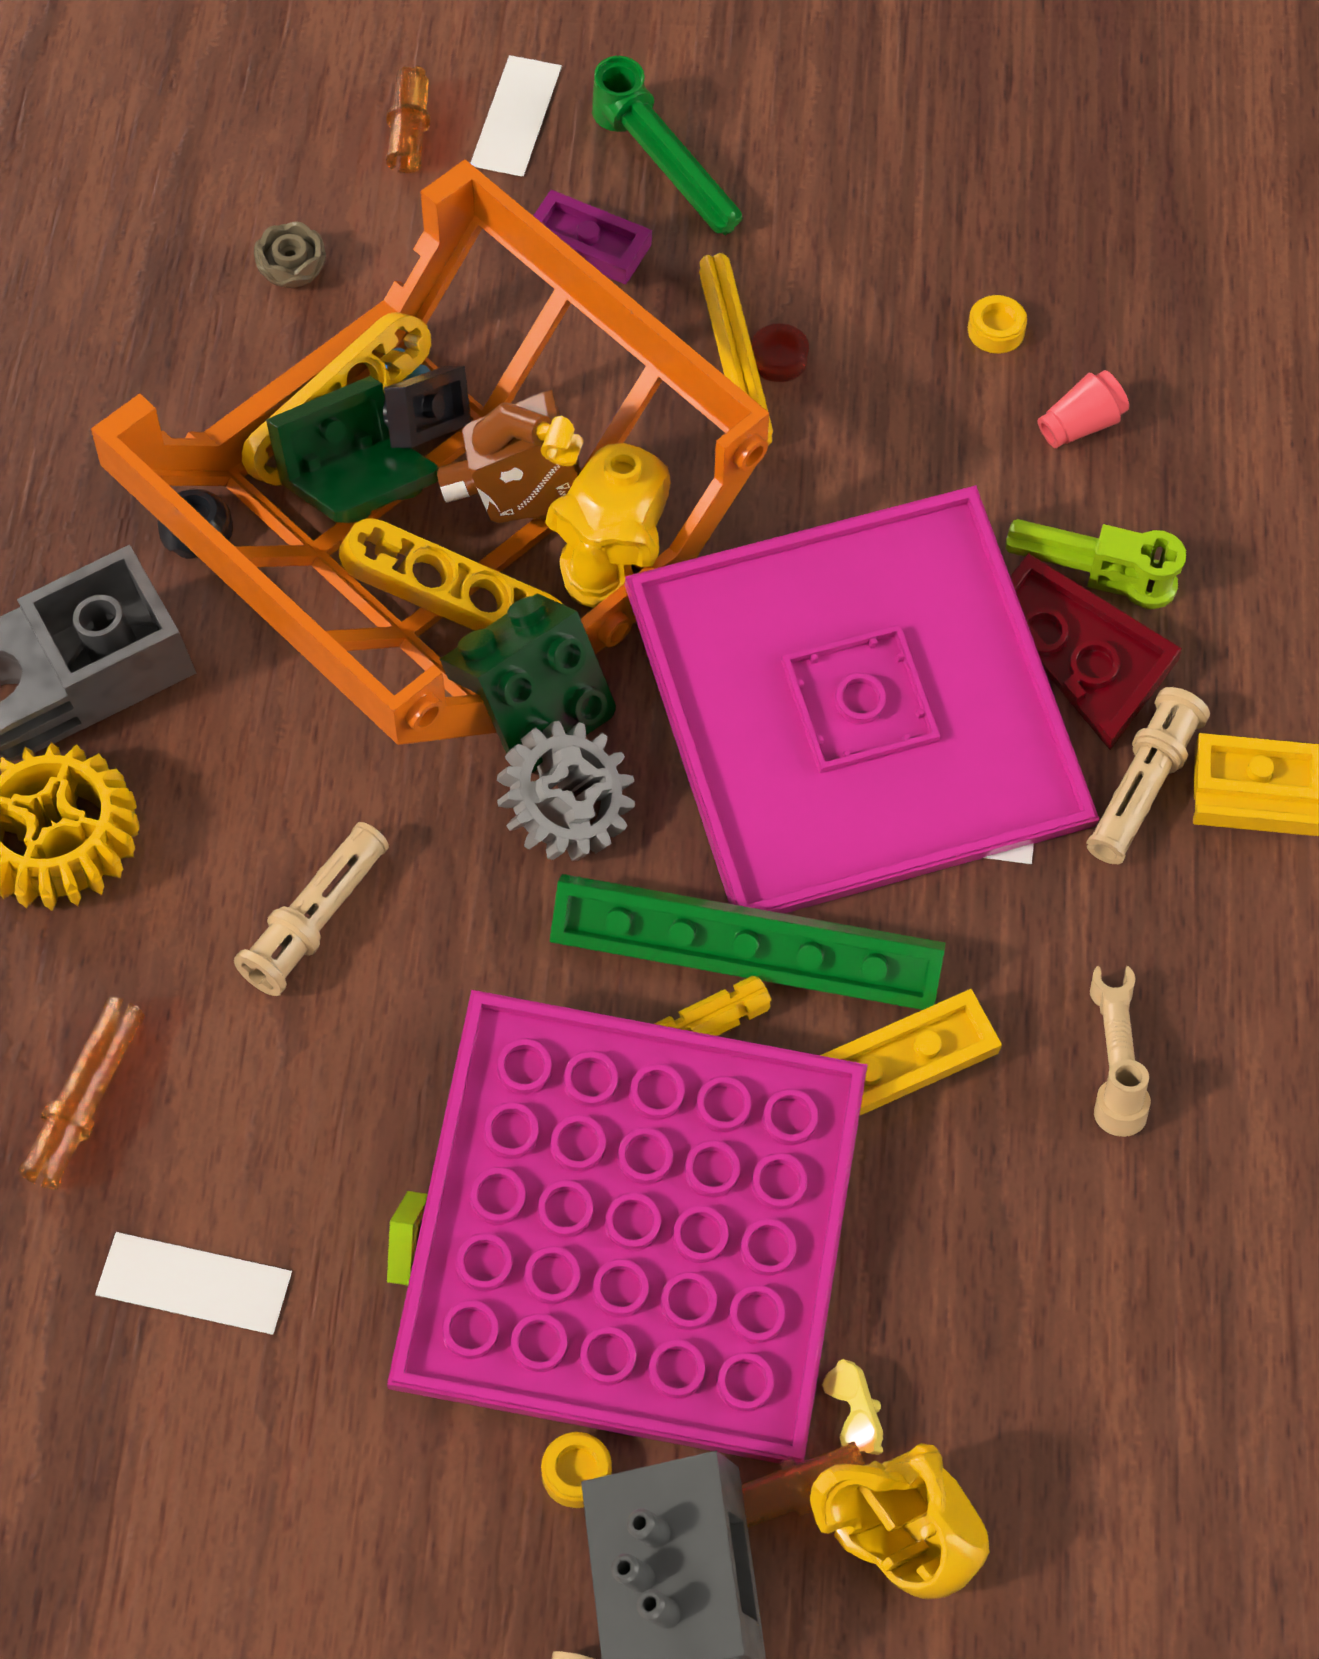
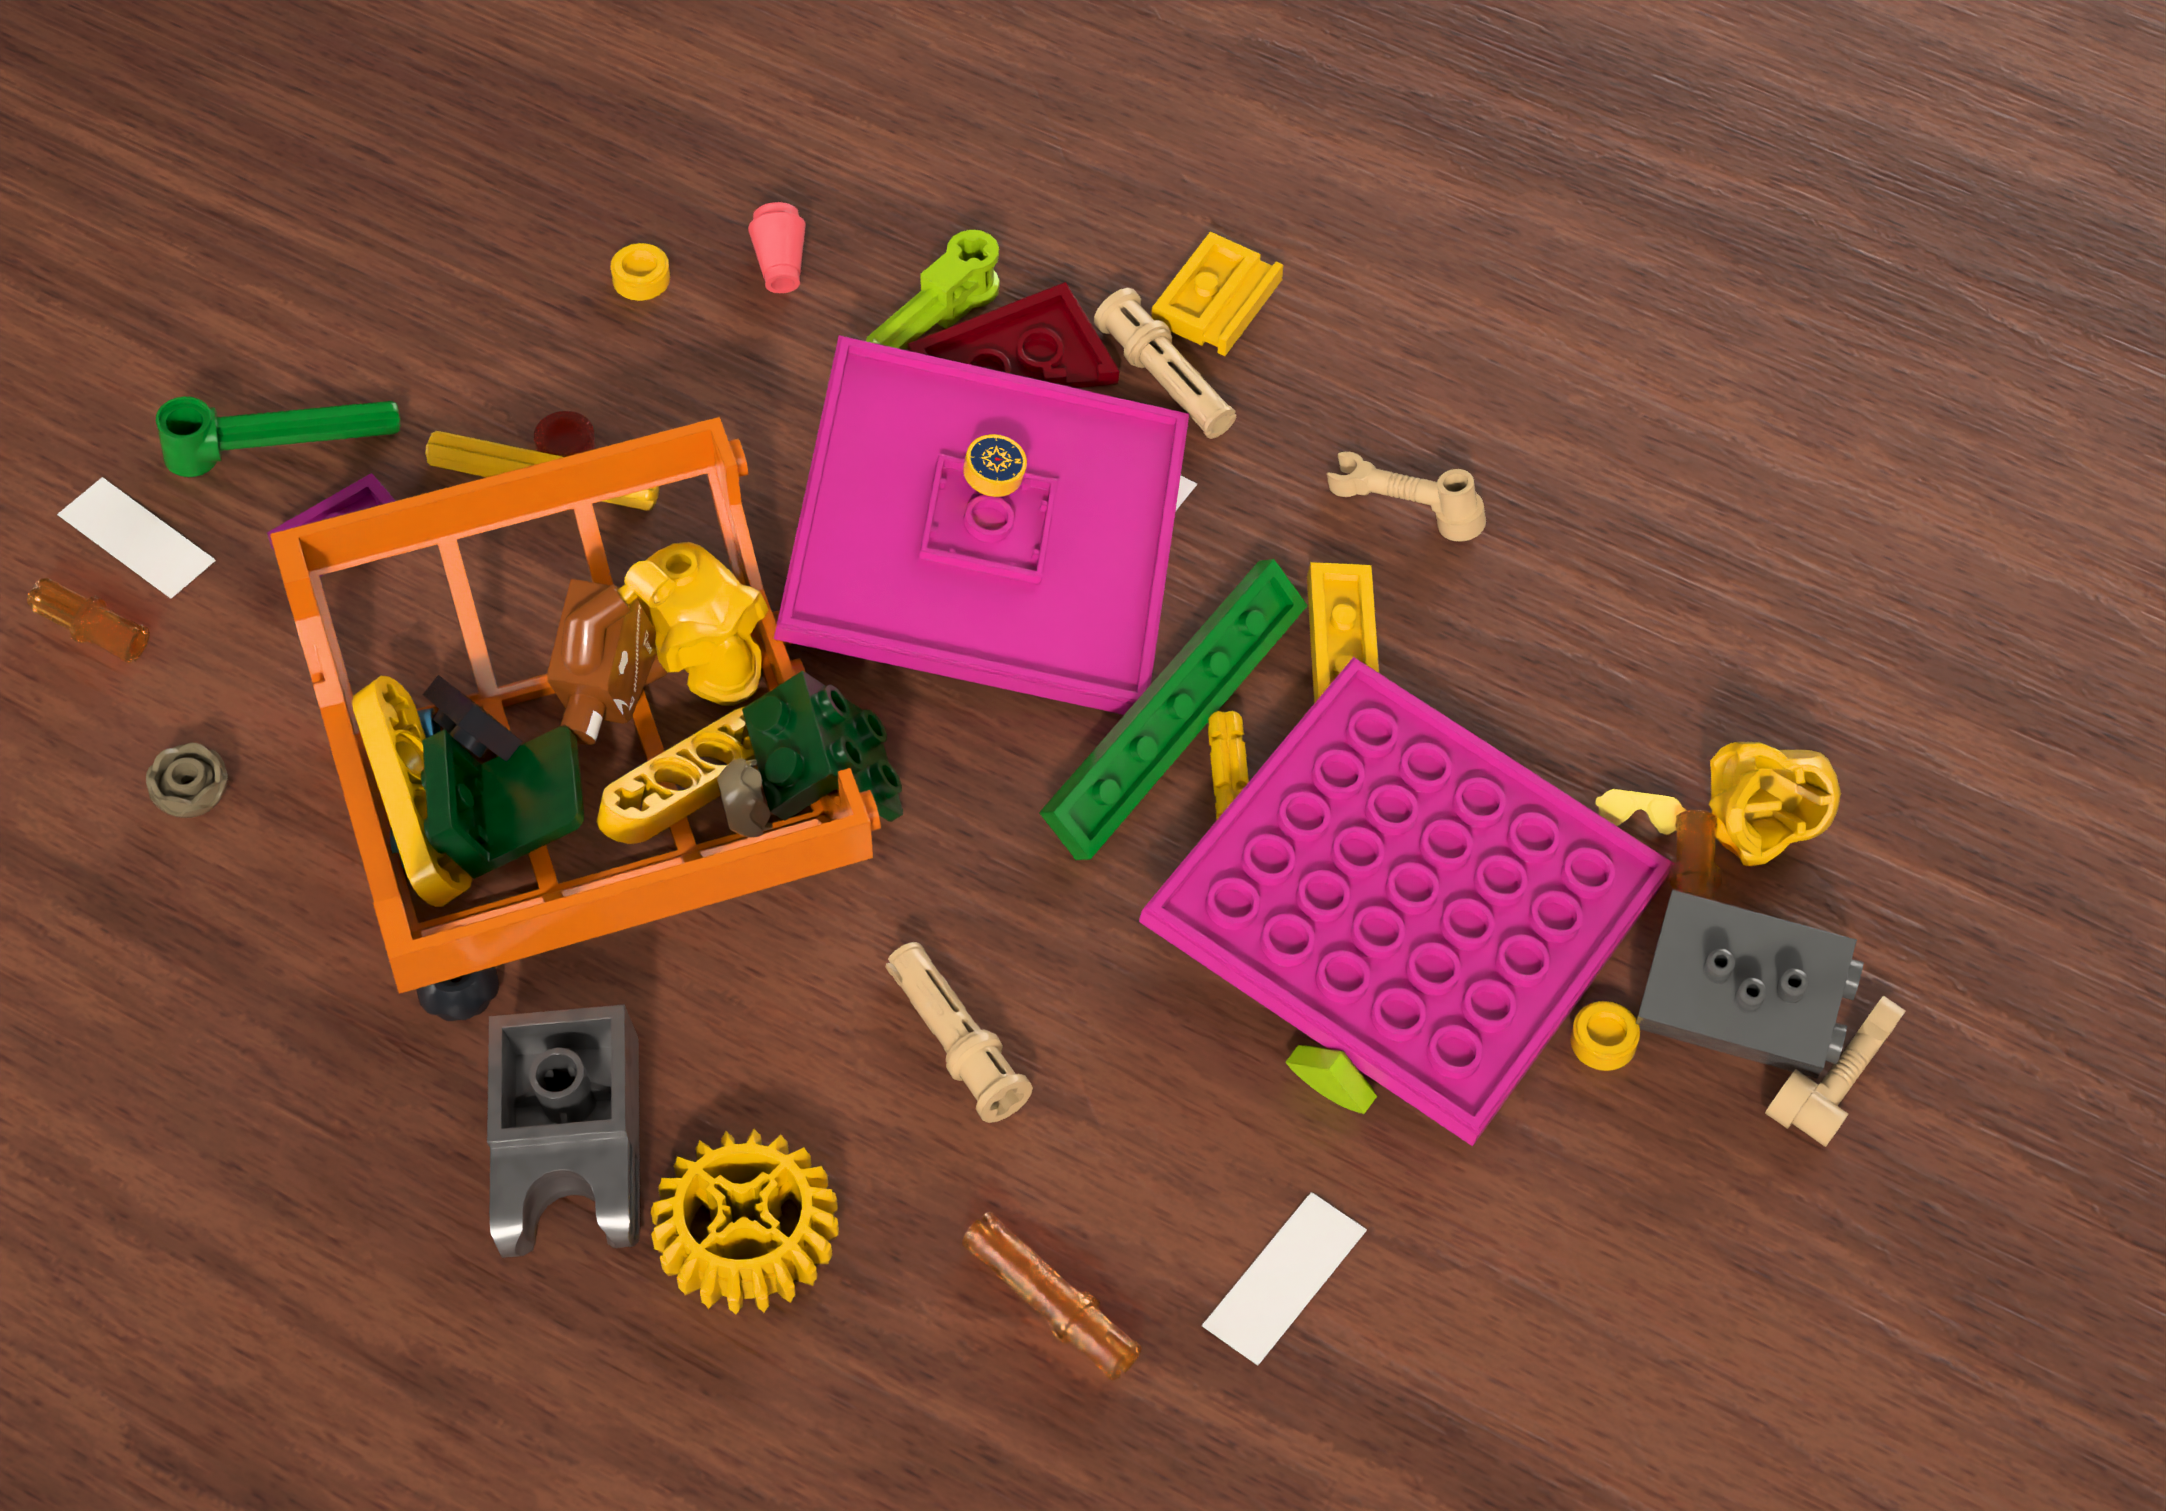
camera: 65 degrees left, 5 degrees down
(441, 630) = (743, 798): none -> dark tan plate
(555, 813) = (953, 778): light grey gear -> none
(910, 672) = (994, 465): none -> tile

